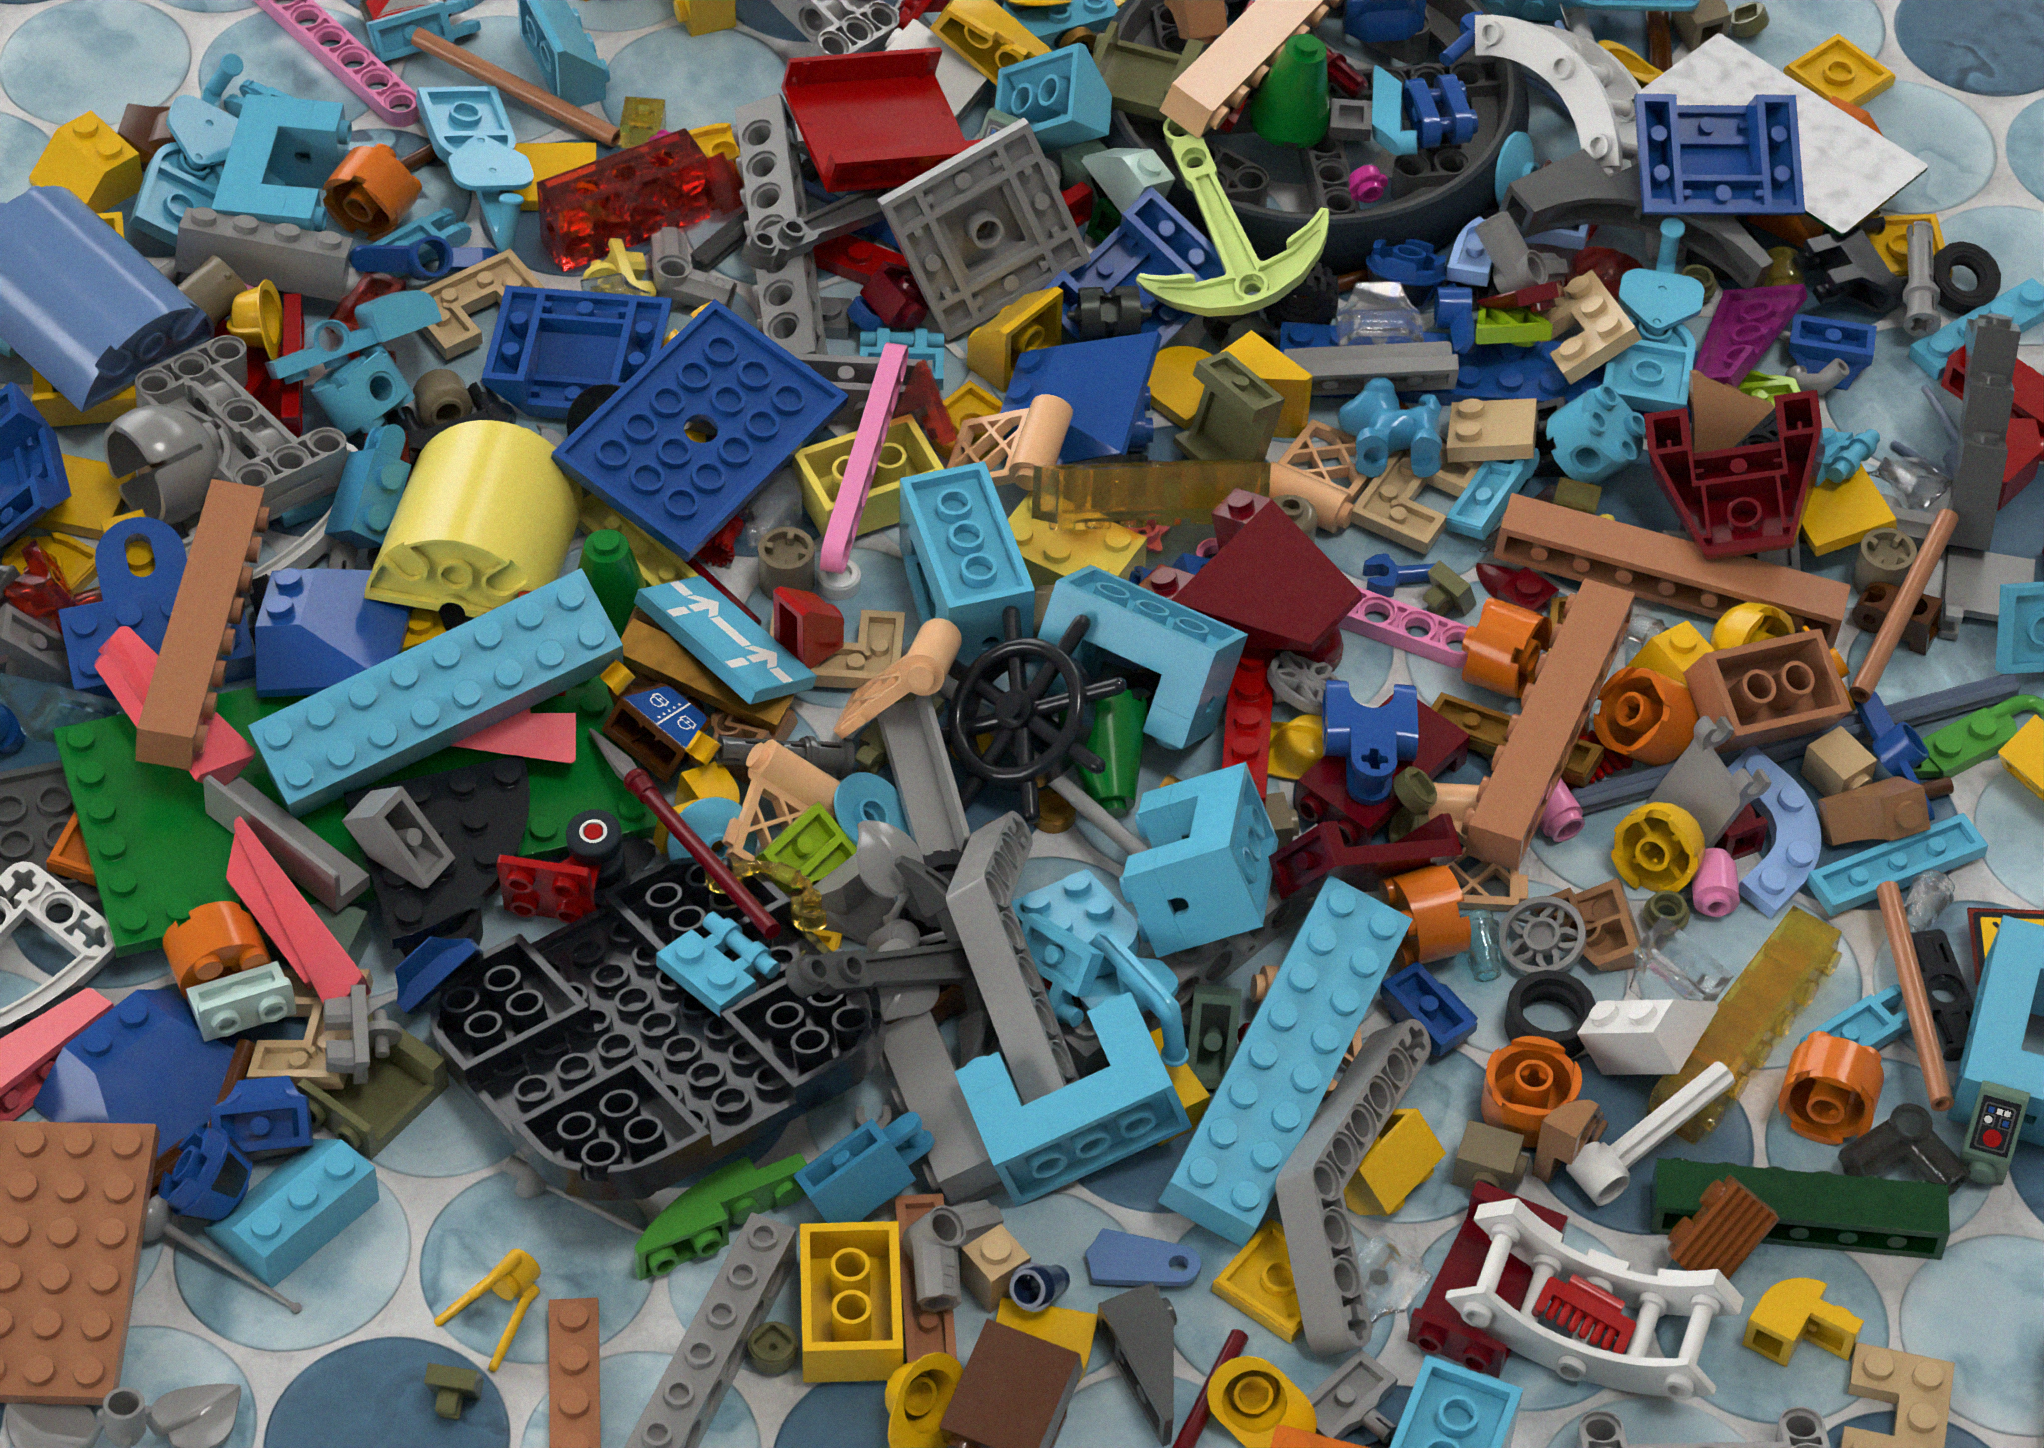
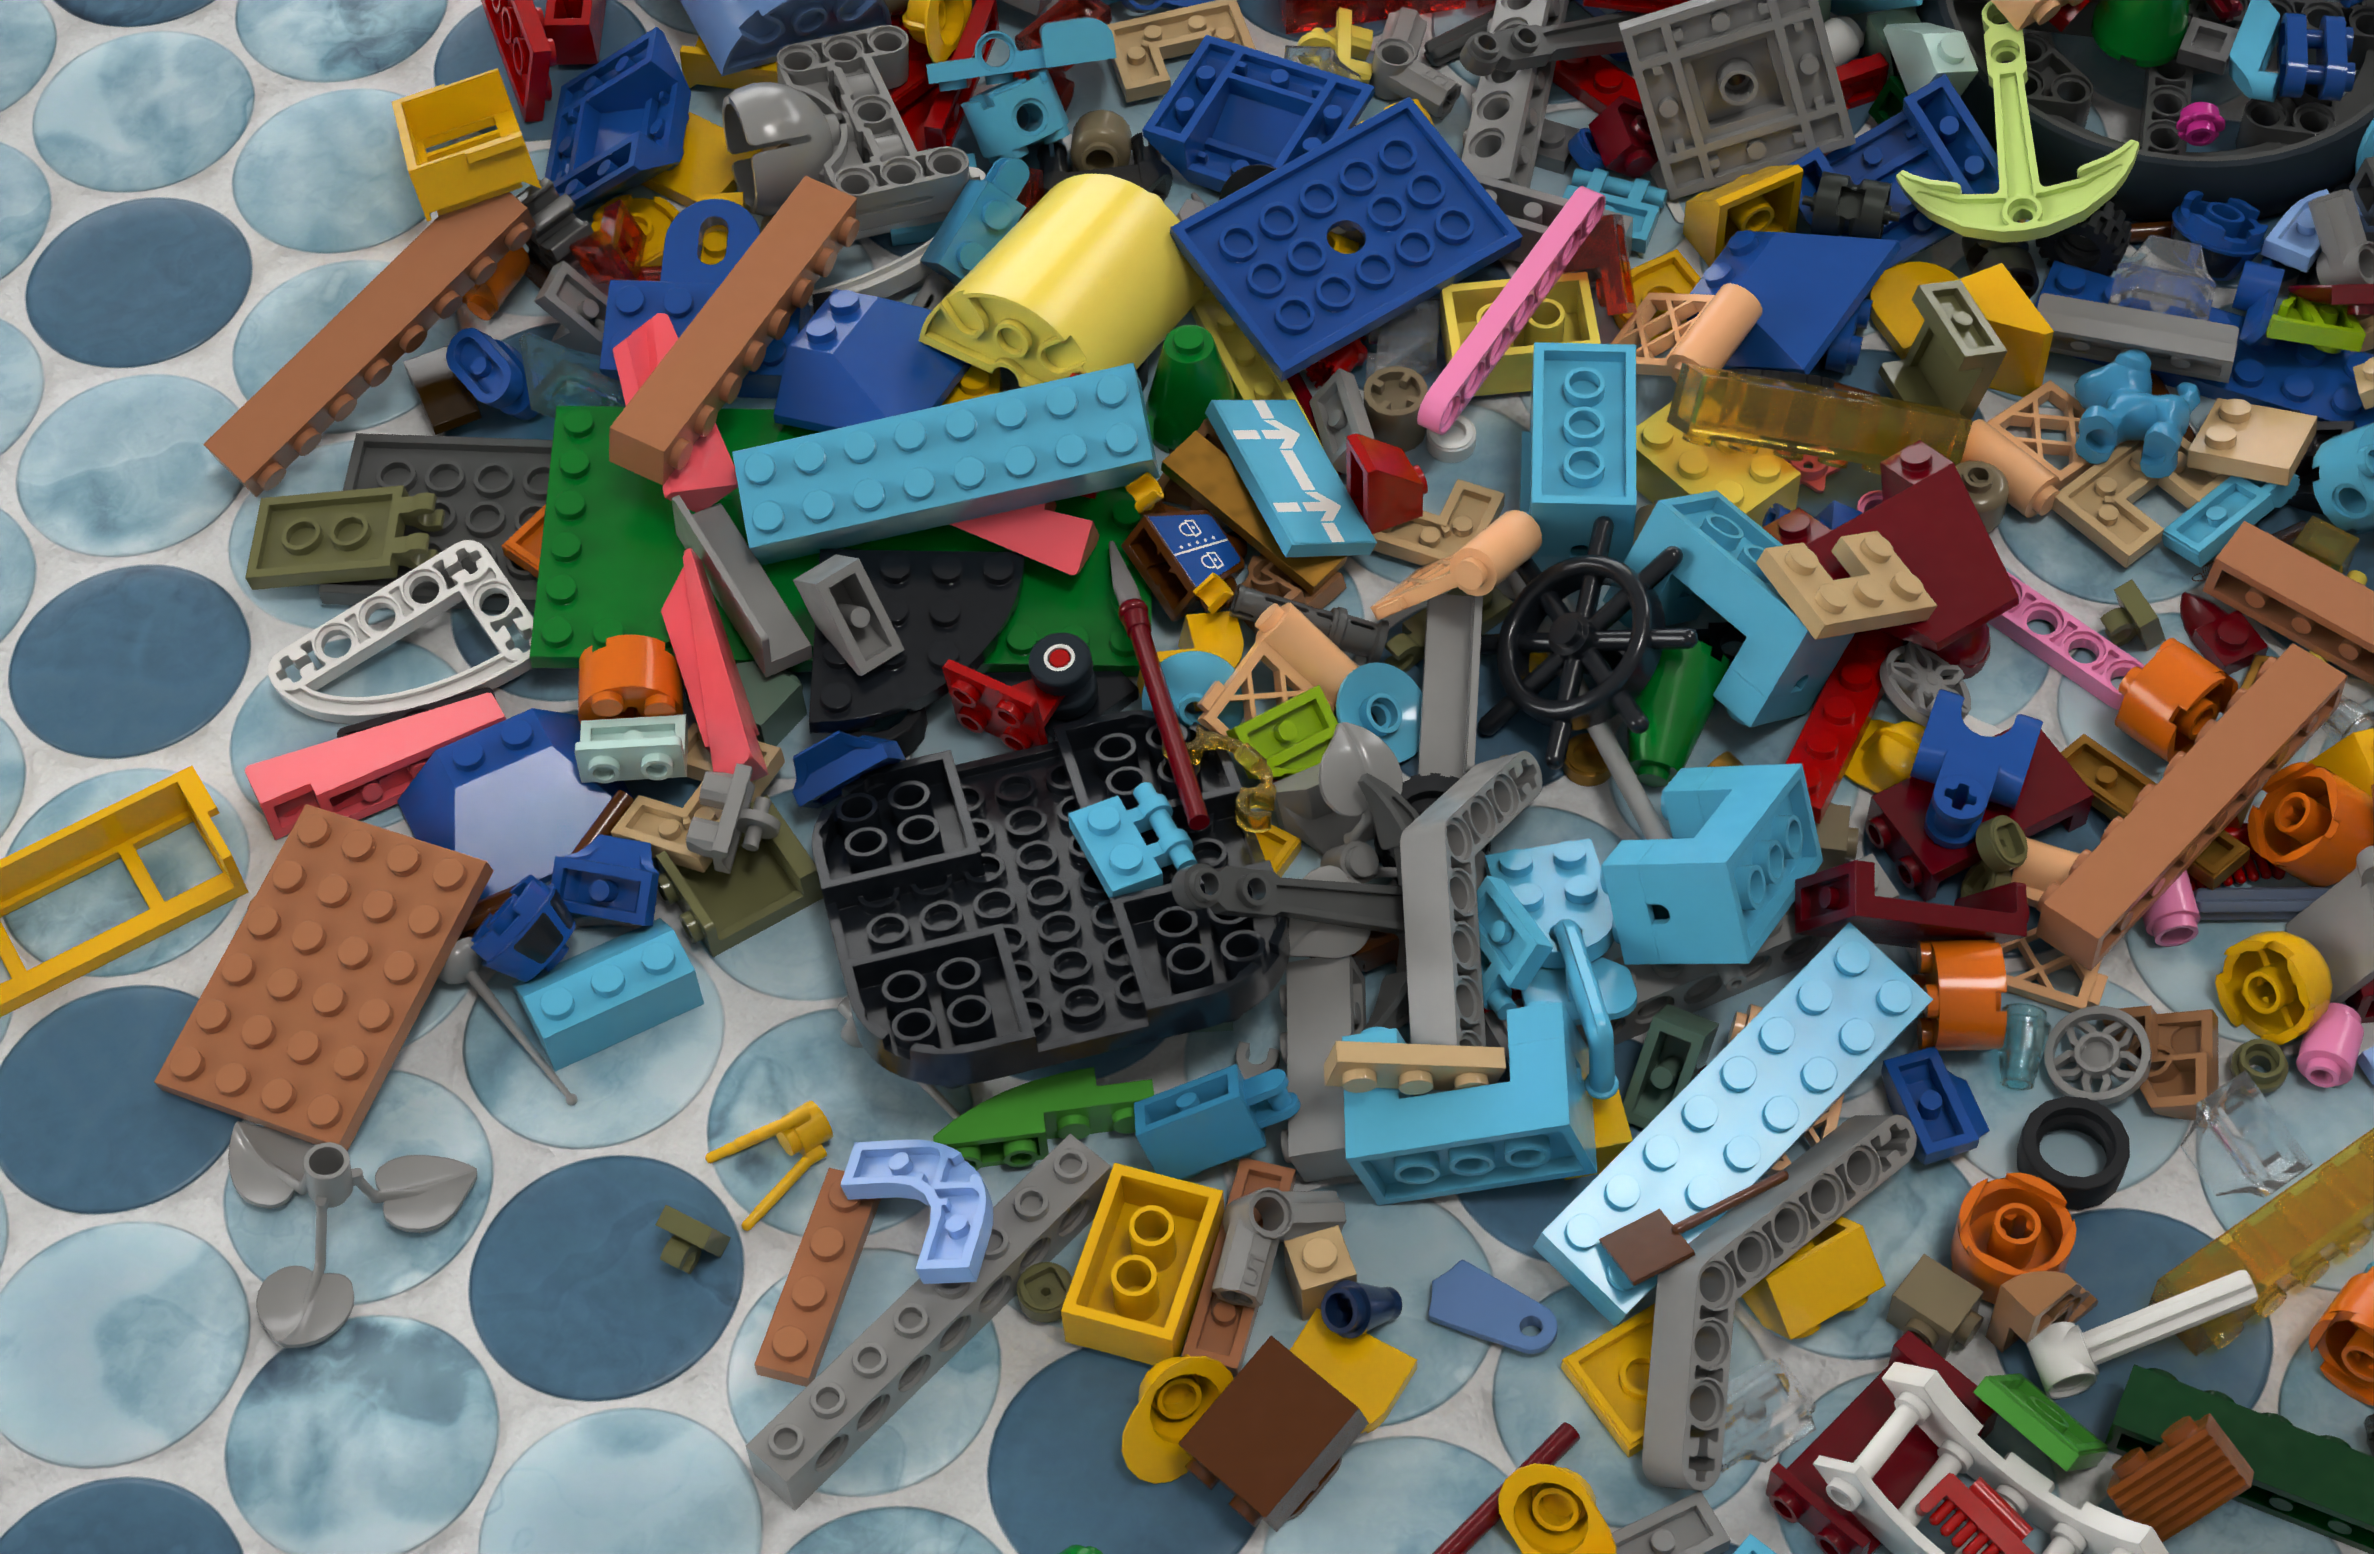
camera: 25 degrees right, 5 degrees up
(660, 1277) = (943, 1181): none -> light blue plate
(745, 582) = (1339, 413): none -> light grey plate
(1026, 1075) = (1411, 1067): none -> tan plate
(1141, 1341) = (1455, 1413): dark grey slope -> none
(1250, 616) = (1874, 597): none -> tan plate
(1265, 1165) = (1656, 1244): none -> reddish brown piece
(1393, 574) = (2079, 584): blue bar -> none
(1603, 1219) = (2042, 1421): none -> bright green tile
(1644, 1034) = (2175, 1208): white slope -> none

